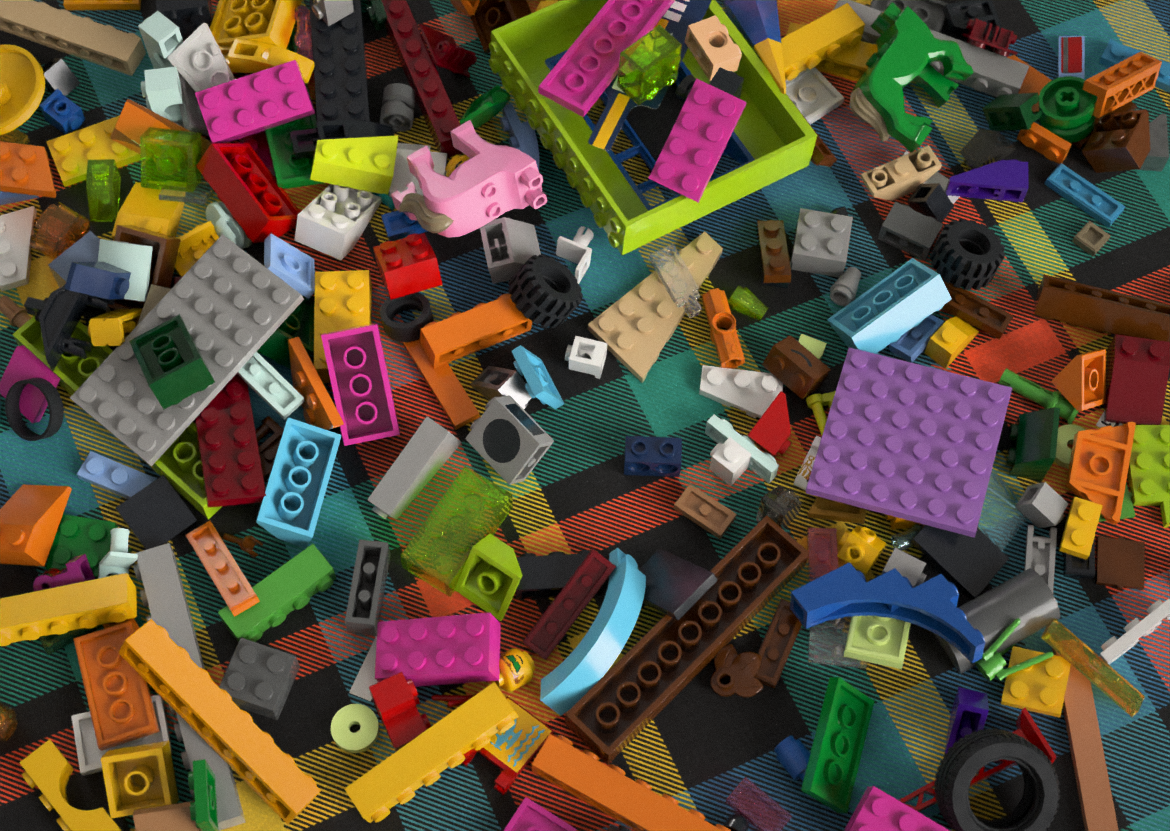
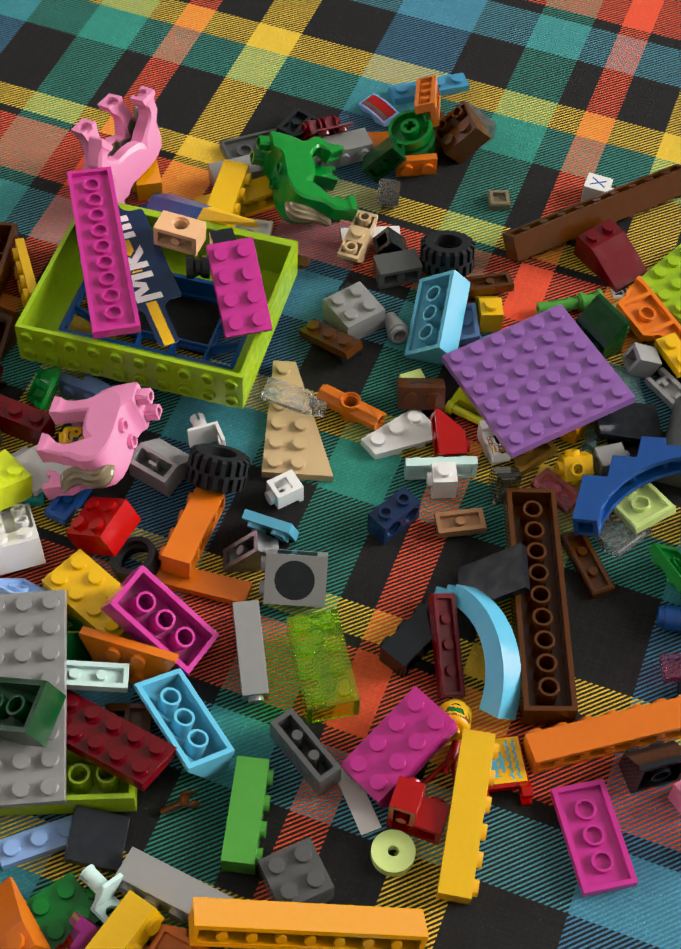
camera: 45 degrees left, 10 degrees down
(222, 568) = (188, 830): orange tile -> none
(490, 576) = (379, 673): lime slope -> none
(649, 65) = (156, 267): clear neon green brick -> none
(739, 669) = (587, 596): reddish brown plate -> none
(747, 303) = (347, 381): clear neon green cone -> none
(996, 181) = (415, 204): dark purple slope -> none
(1084, 195) = (469, 179): dark azure tile -> none
(1084, 380) = (586, 274): orange slope -> none

